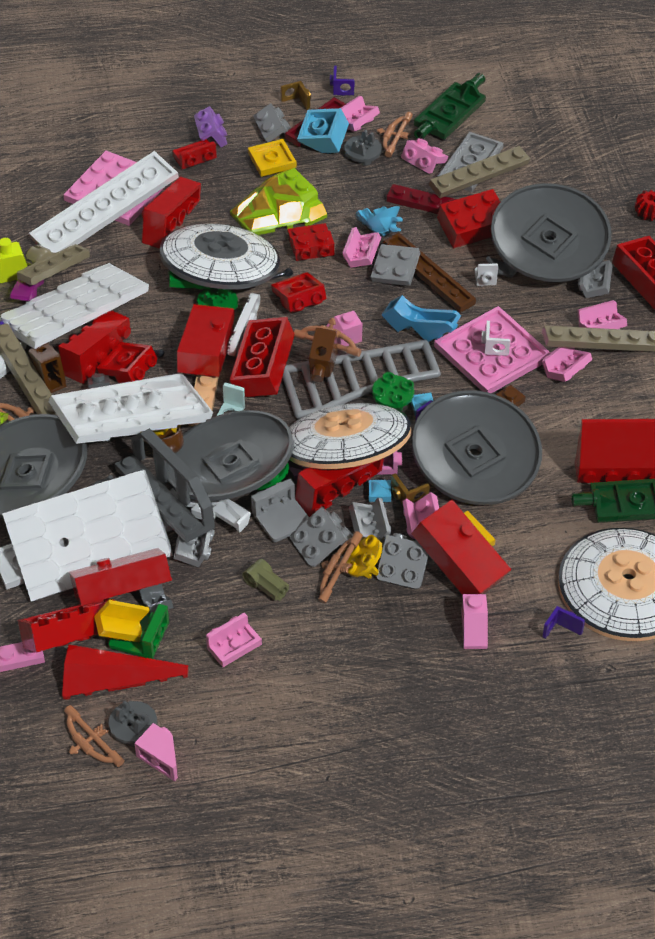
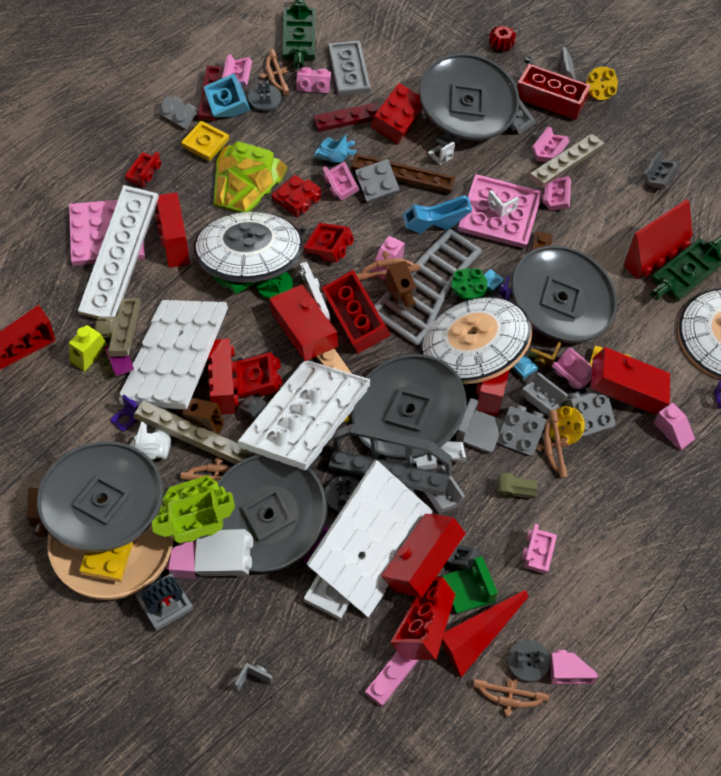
camera: 40 degrees left, 10 degrees up
(120, 620) = (461, 592): yellow panel -> none
(173, 440) = (356, 417): reddish brown hair -> none
(210, 125) = (132, 138): medium lavender bracket -> none
(233, 398) = (363, 358): light aqua bracket -> none
(299, 92) = (179, 74): pearl gold bracket -> none
(336, 83) = (198, 53): dark purple bracket -> none
(479, 171) = (366, 73): dark tan plate -> none

